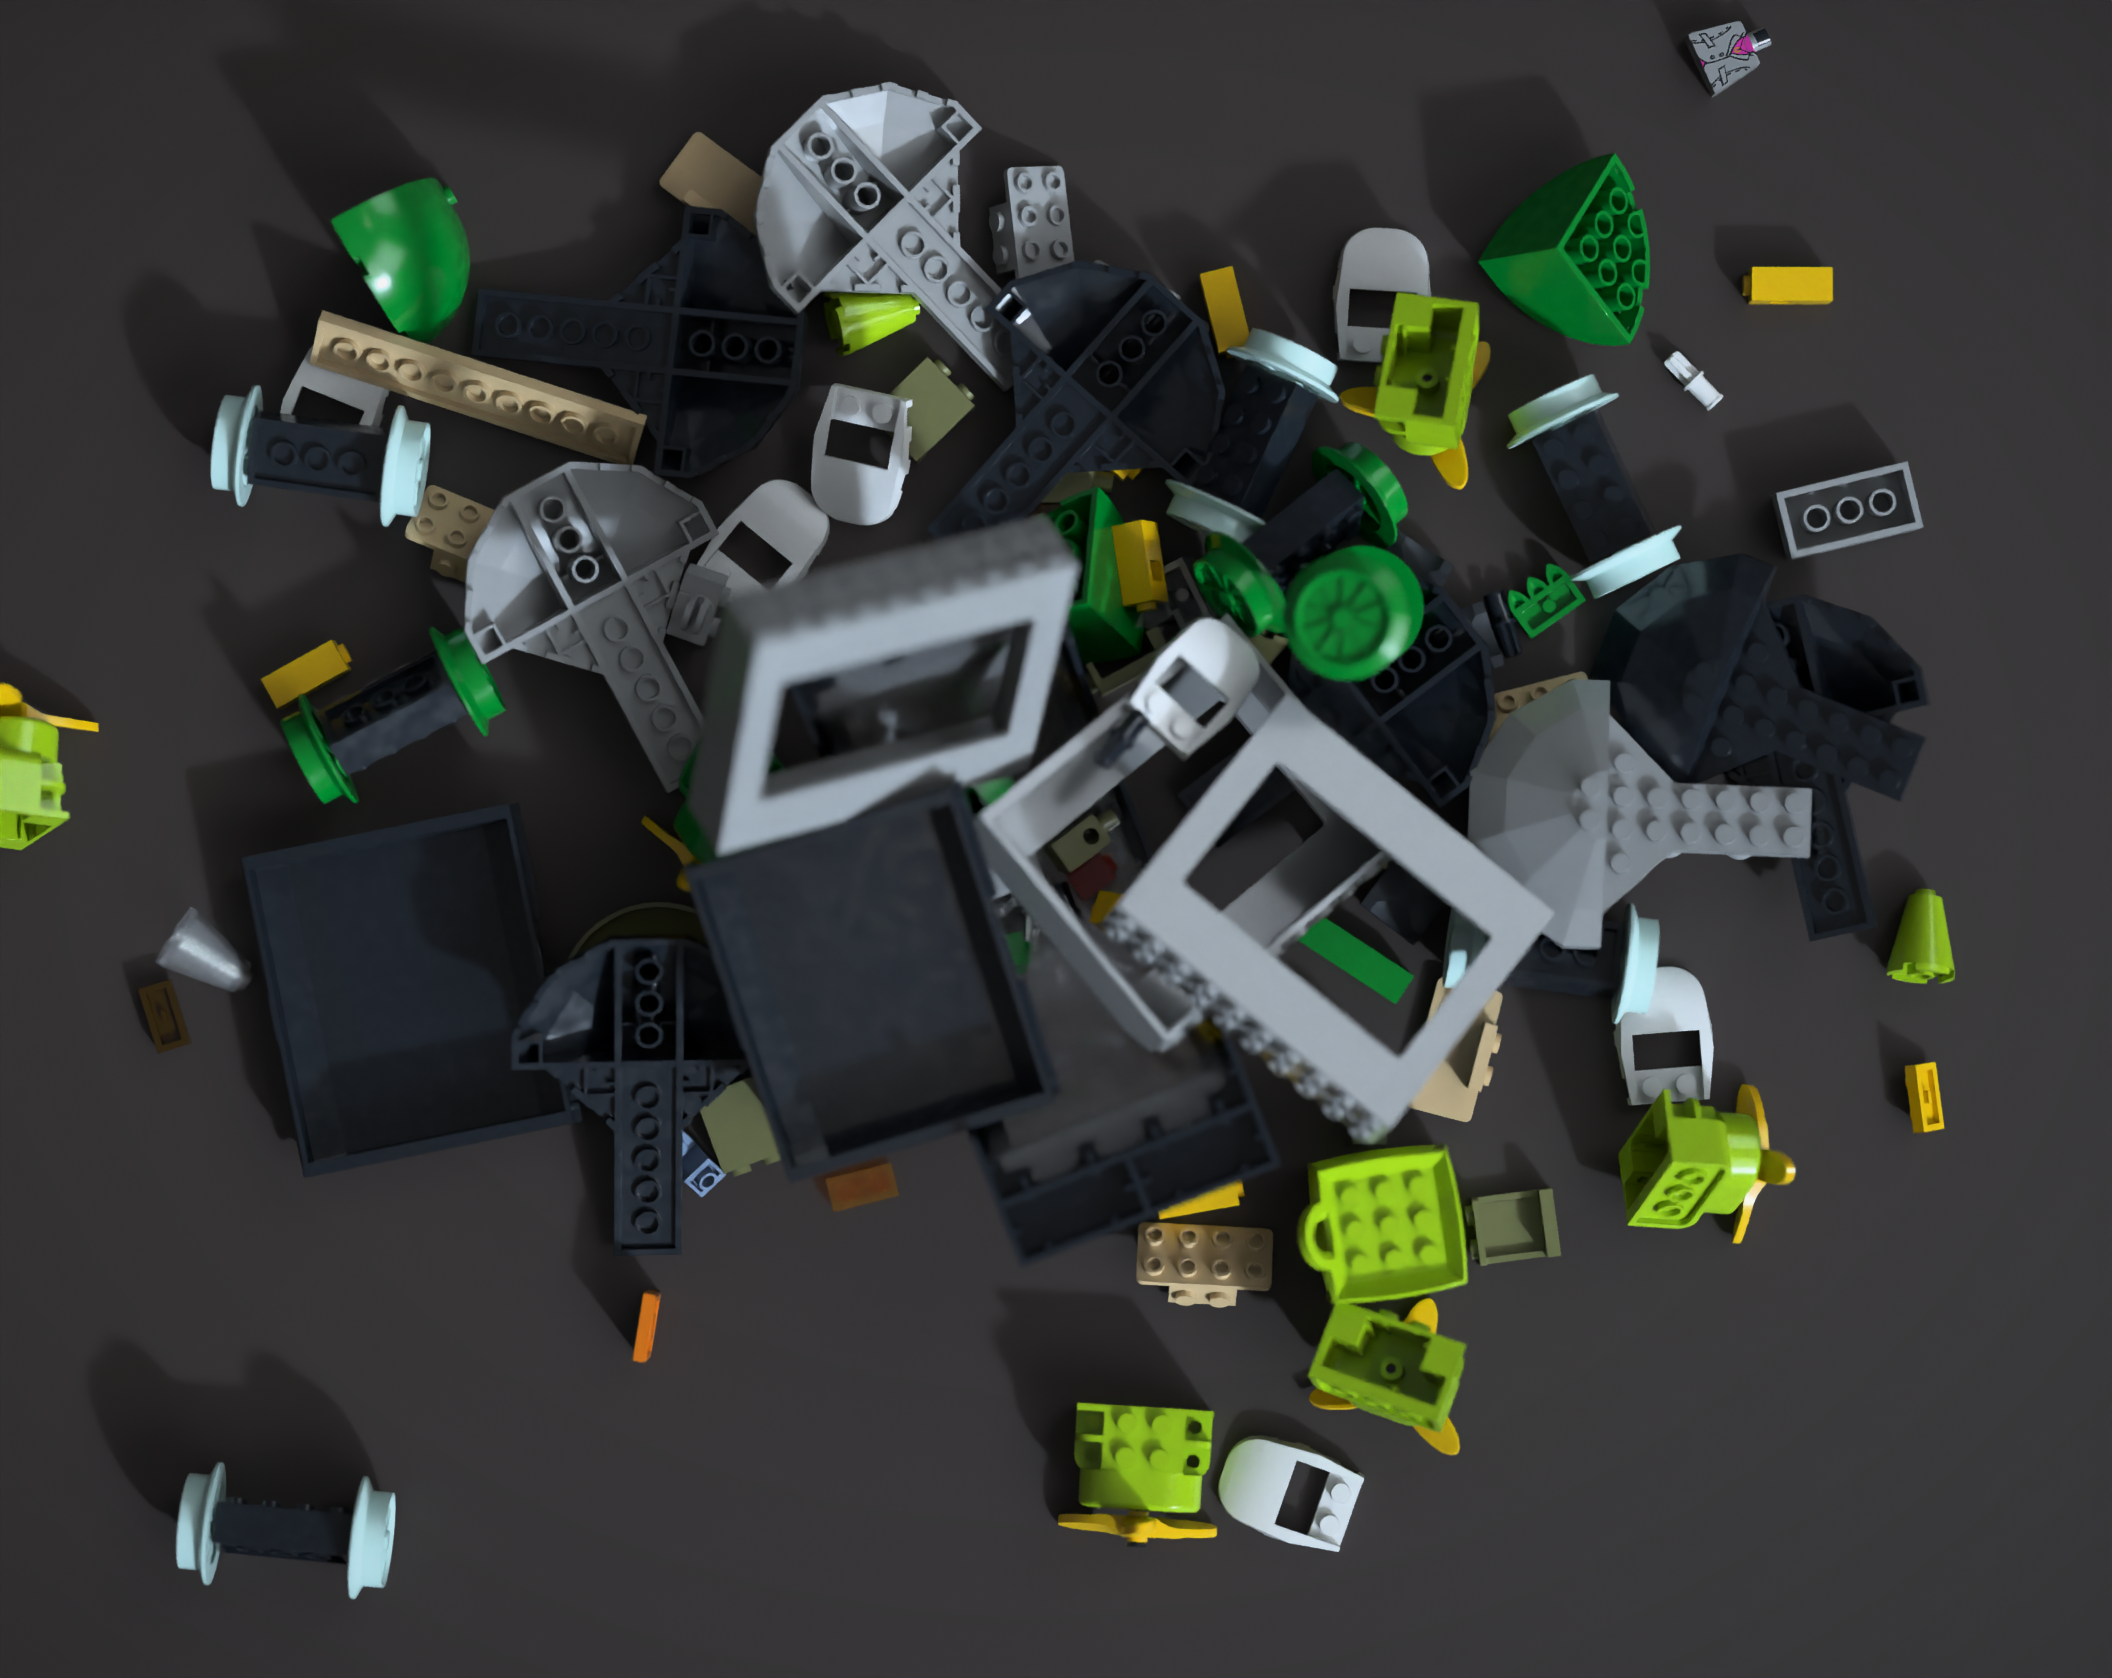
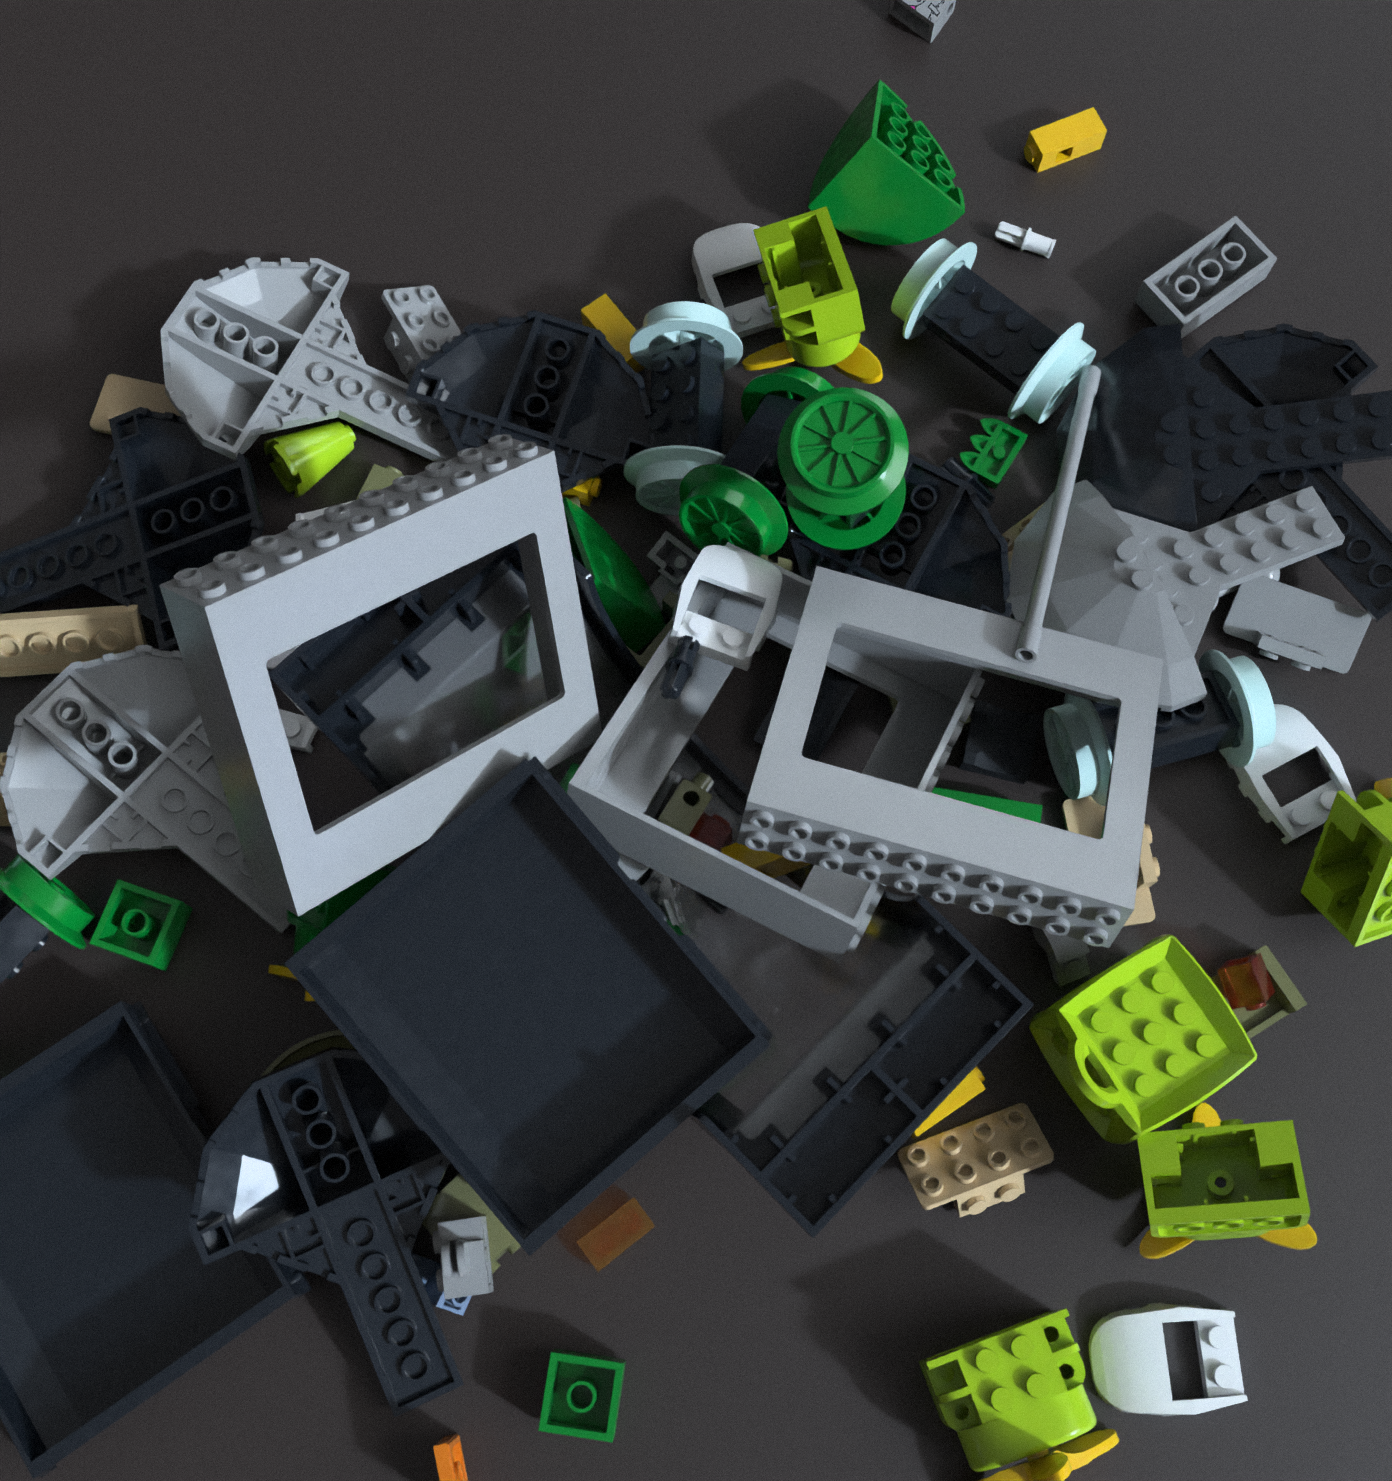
camera: 20 degrees left, 15 degrees down
(543, 731) = (141, 925): none -> green brick
(726, 1152) = (463, 1258): none -> light grey brick
(780, 1306) = (582, 1395): none -> green brick
(1140, 565) = (632, 550): yellow brick -> none
(1444, 842) = (1031, 632): none -> light grey piece
(1516, 1213) = (1246, 982): none -> clear red brick
(1743, 909) = (1296, 625): none -> light grey bracket

